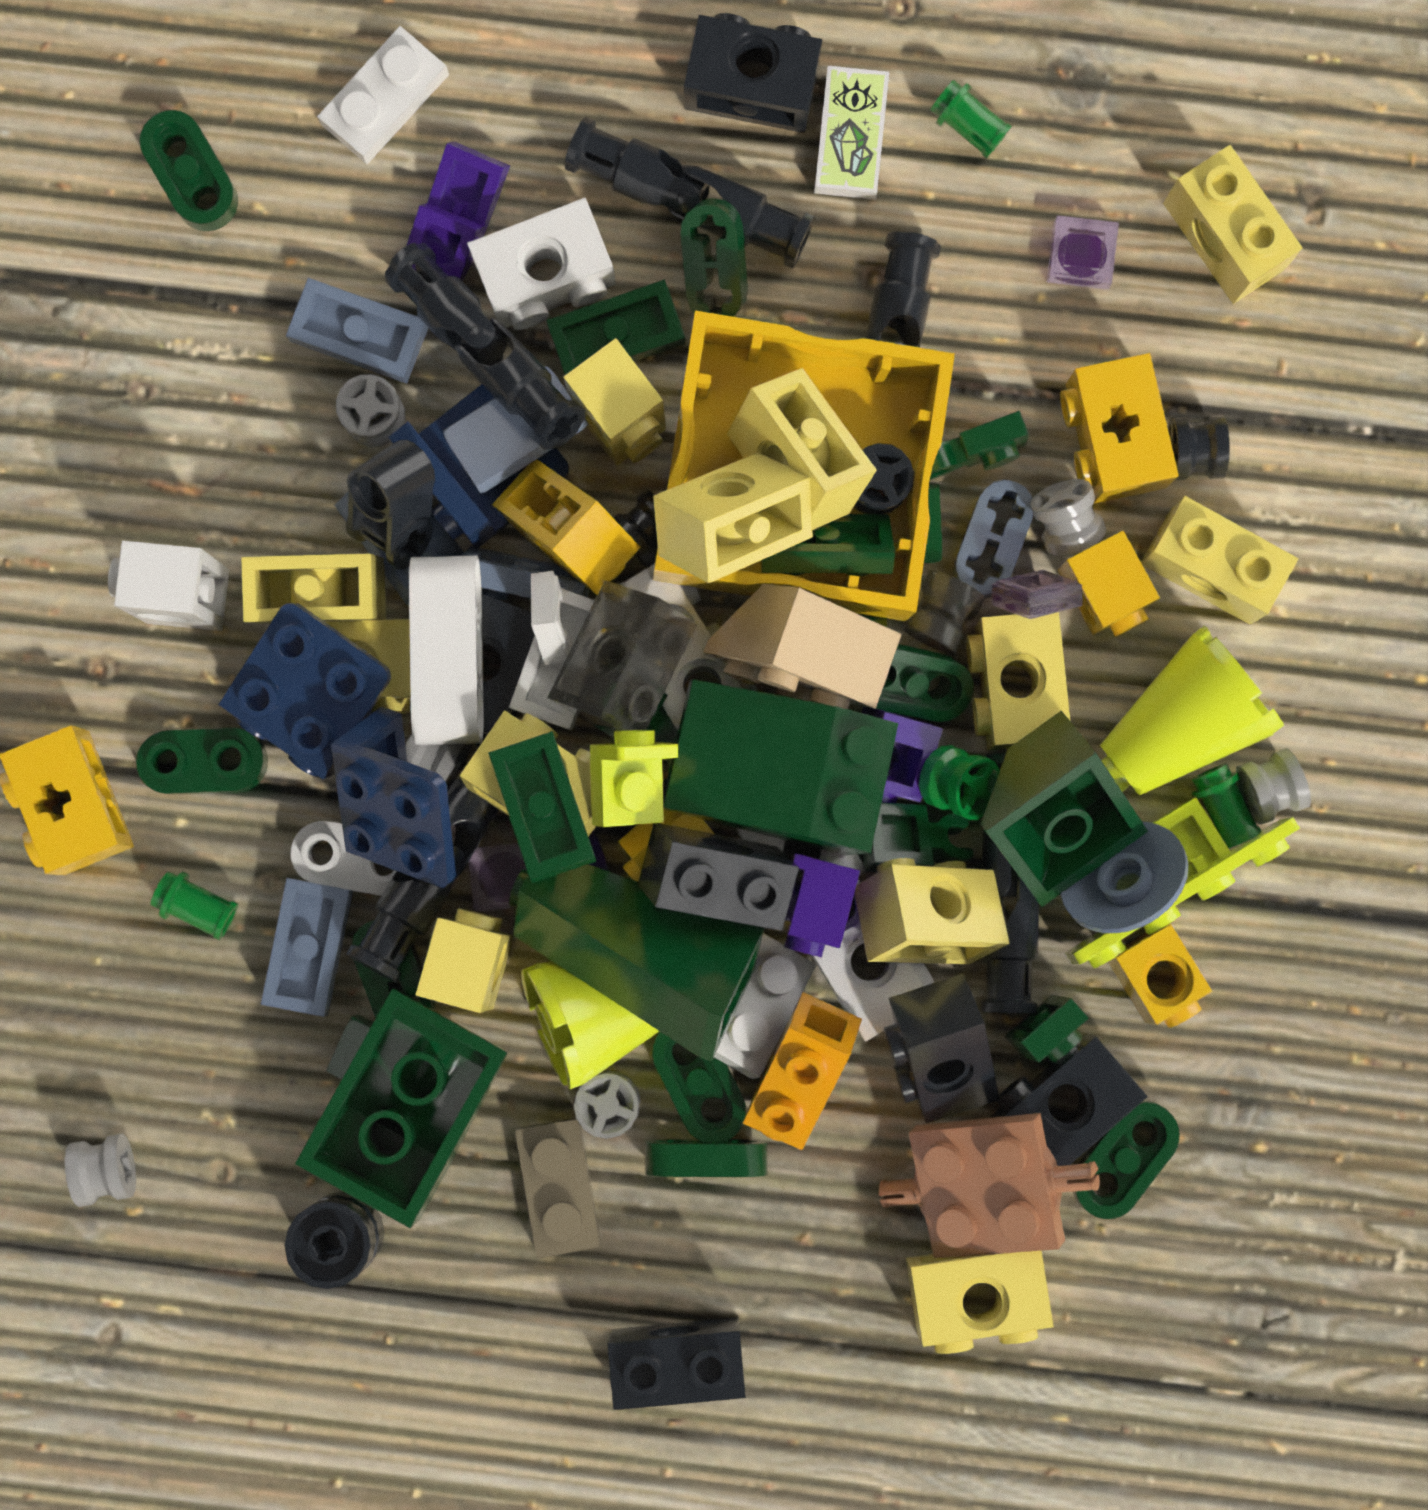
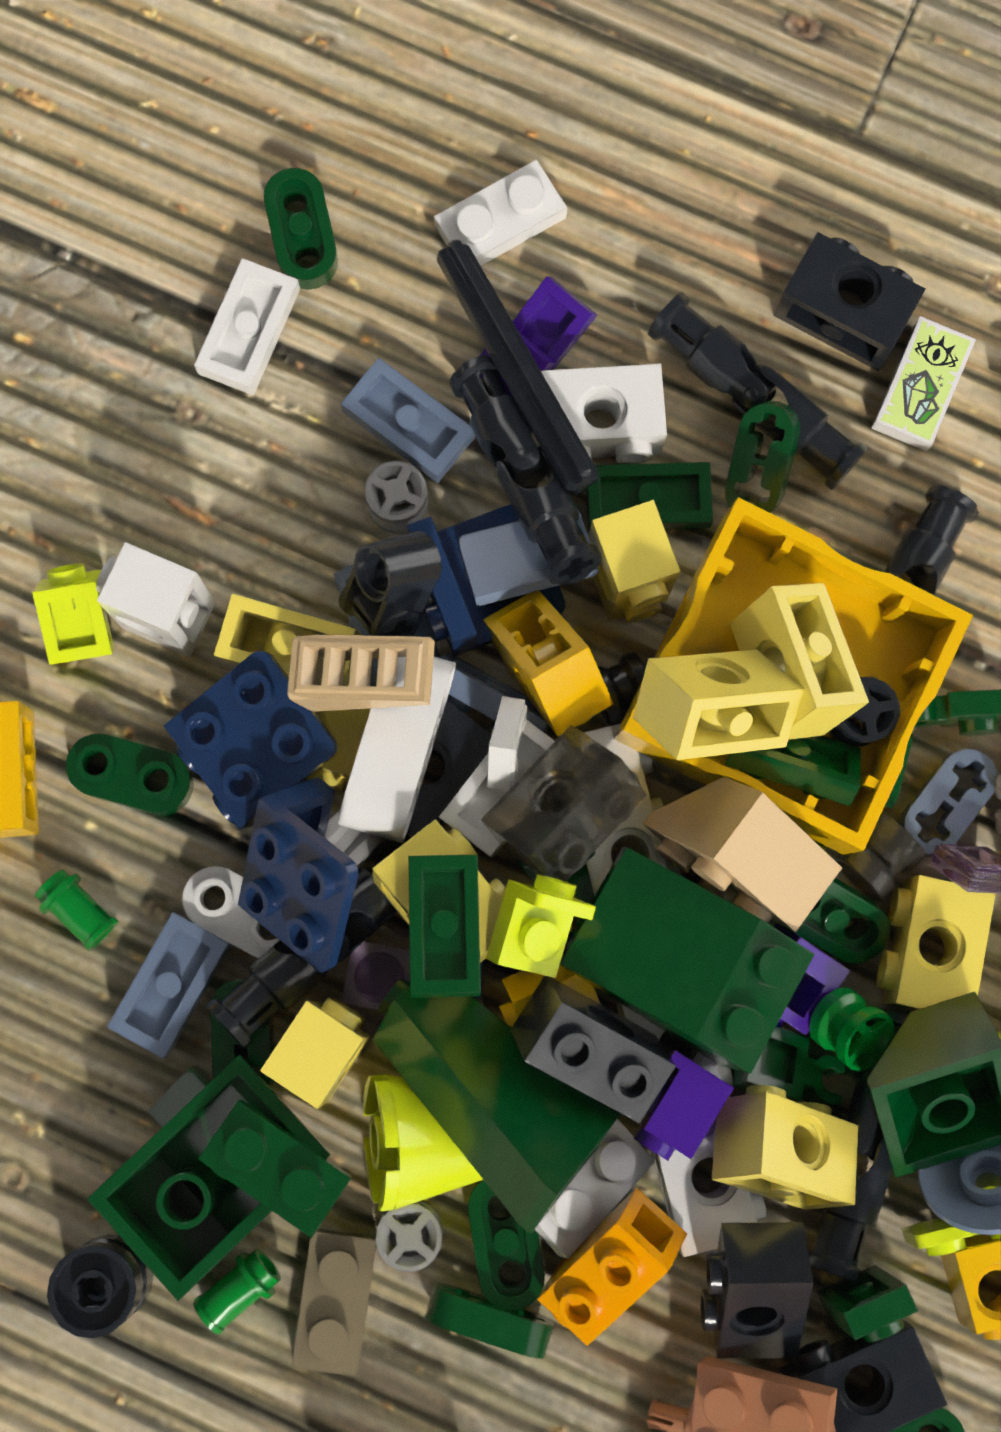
camera: 10 degrees right, 5 degrees down
(93, 627) = (70, 616): none -> neon yellow bracket
(169, 286) = (247, 326): none -> white plate
(348, 604) = (319, 668): none -> tan slope
(445, 245) = (517, 368): none -> black axle
(459, 1079) = (275, 1168): none -> dark green plate
(464, 1205) = (237, 1290): none -> green pin

